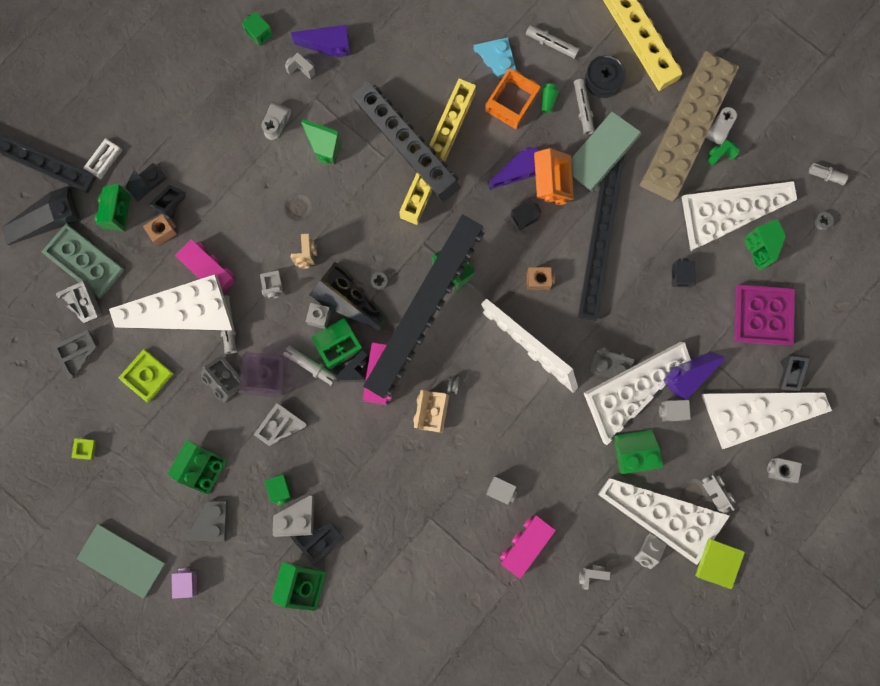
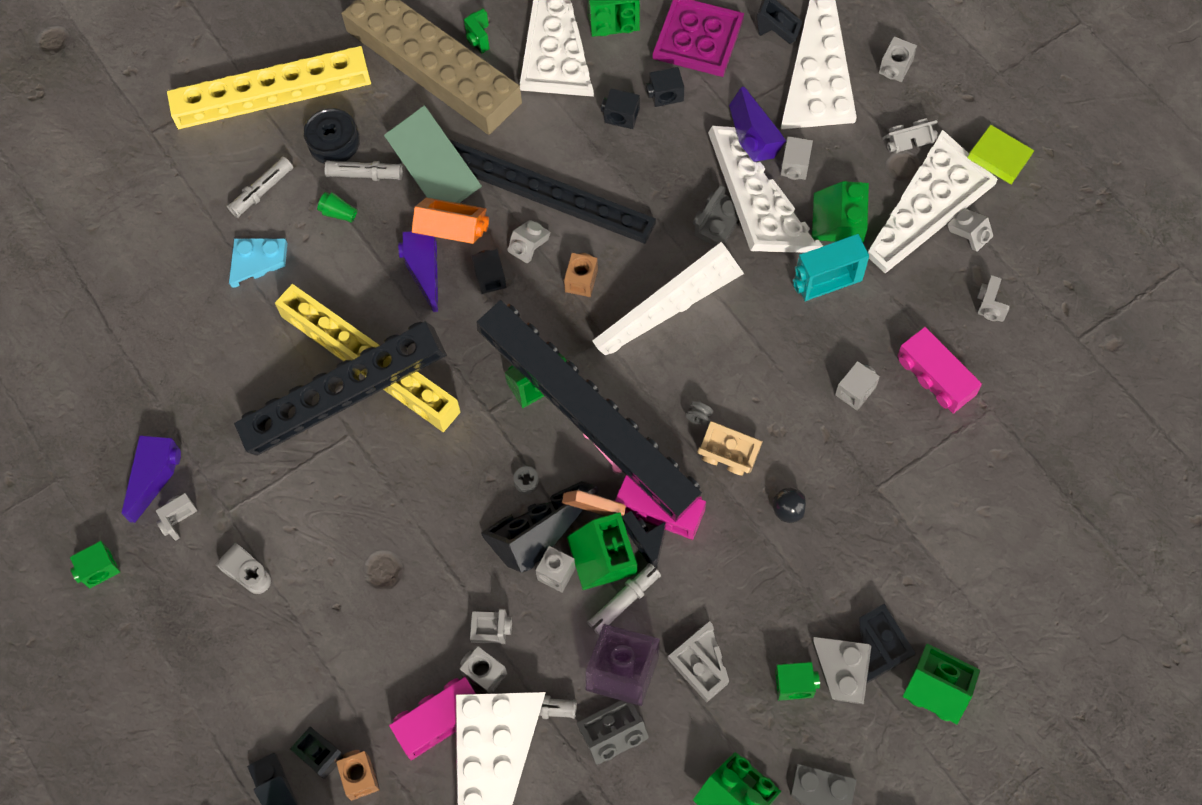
camera: 70 degrees left, 15 degrees down
(245, 295) = (488, 681): none -> light grey brick
(309, 250) = (458, 559): tan bracket -> none
(323, 140) = (300, 506): slope -> none
(365, 329) = (593, 503): none -> nougat tile
(400, 460) = (789, 505): none -> black piece
(505, 114) = (335, 269): orange window -> none
(558, 235) = (527, 239): none -> light grey bracket
(586, 453) = (830, 267): none -> teal window
(711, 301) = (665, 87): none -> black brick
(720, 127) = (444, 19): light grey piece -> none

